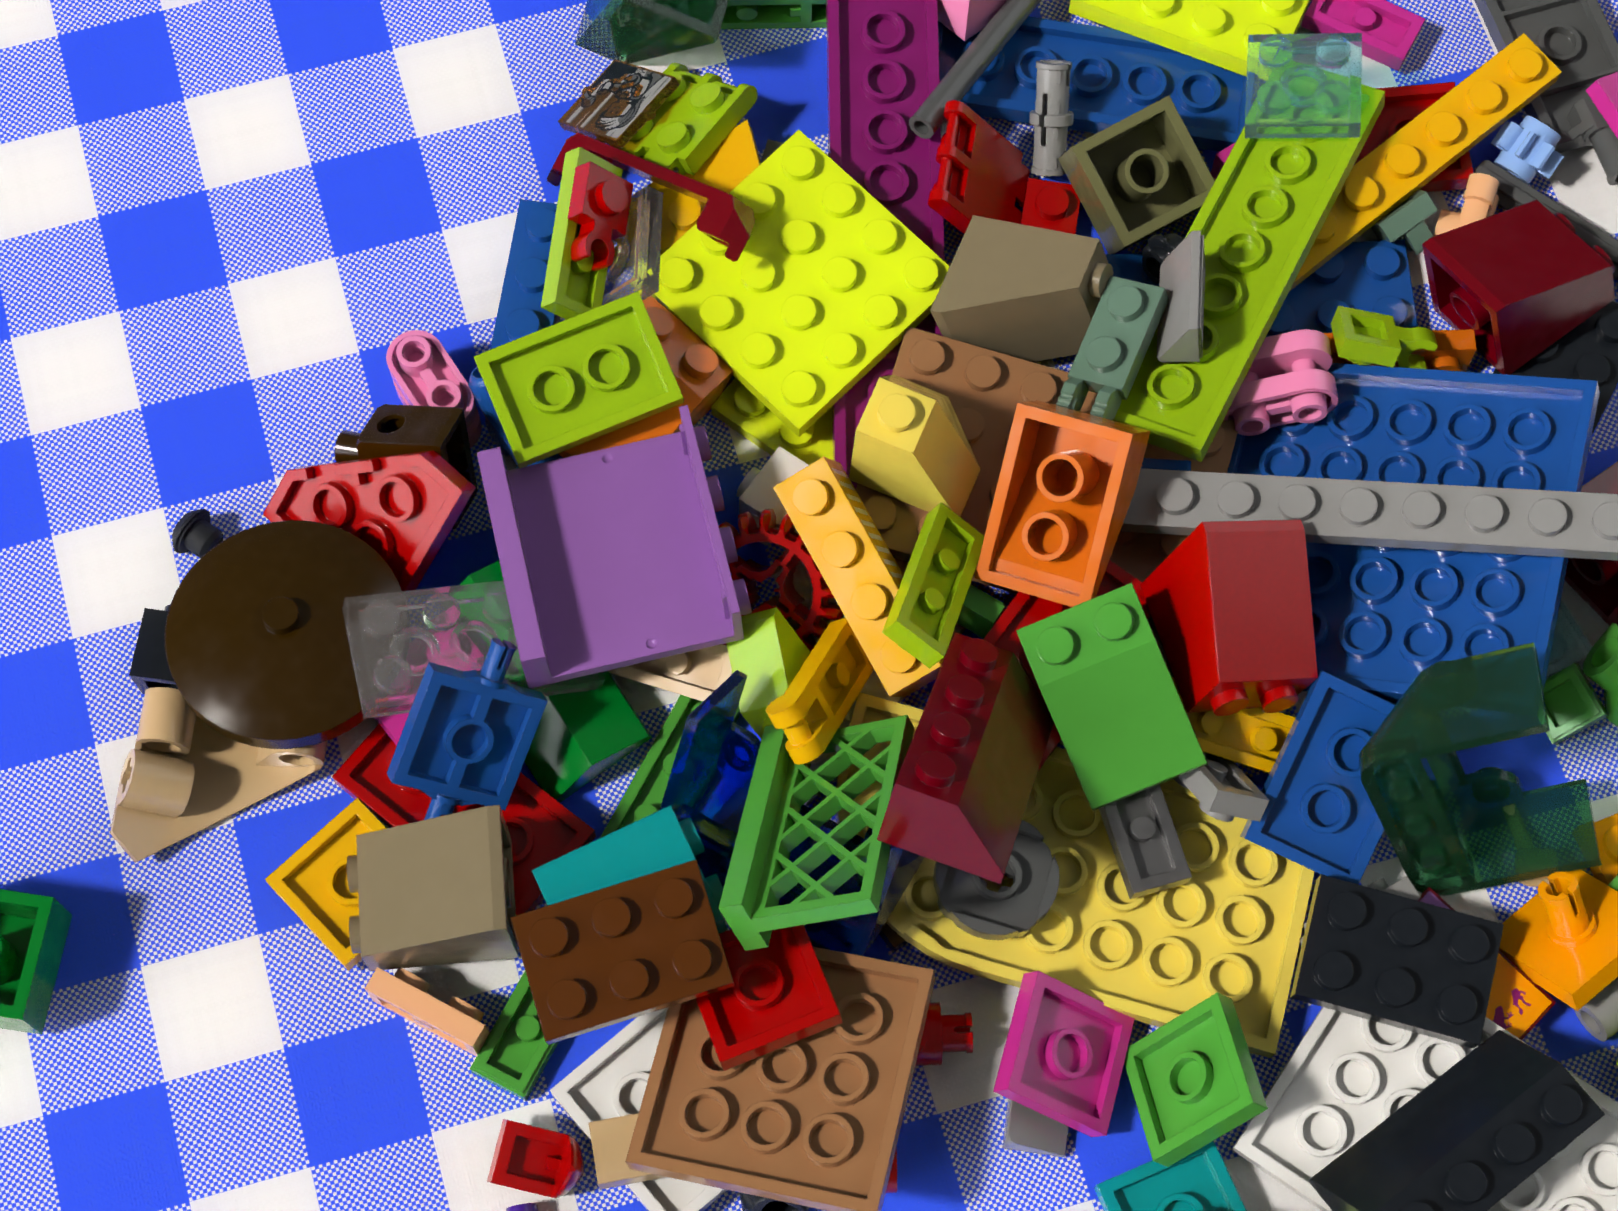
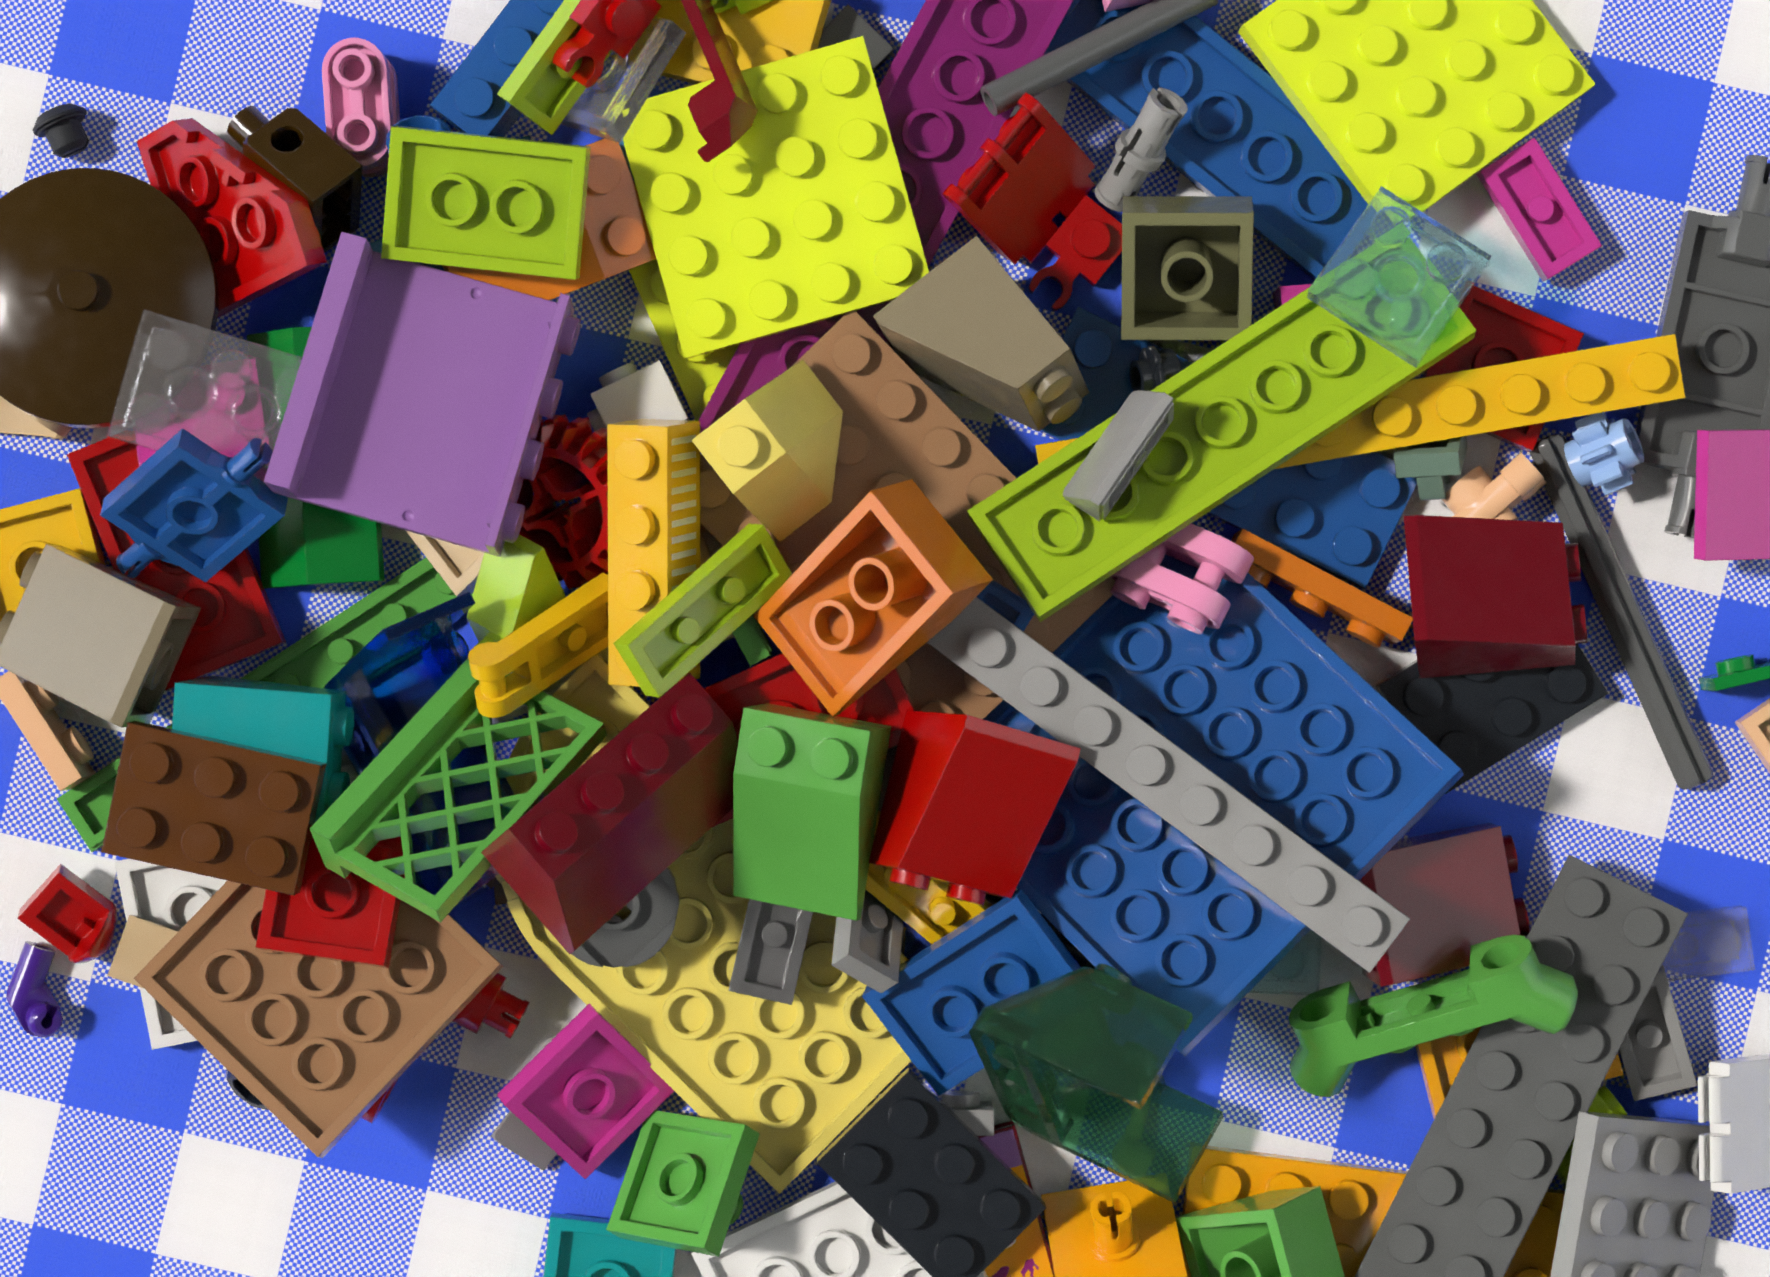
camera: 30 degrees right, 20 degrees up
(1114, 346) = (1020, 463): sand green hinge -> none
(1375, 339) = (1299, 585): lime plate -> none
(1571, 704) = (1261, 1028): bright green tile -> none

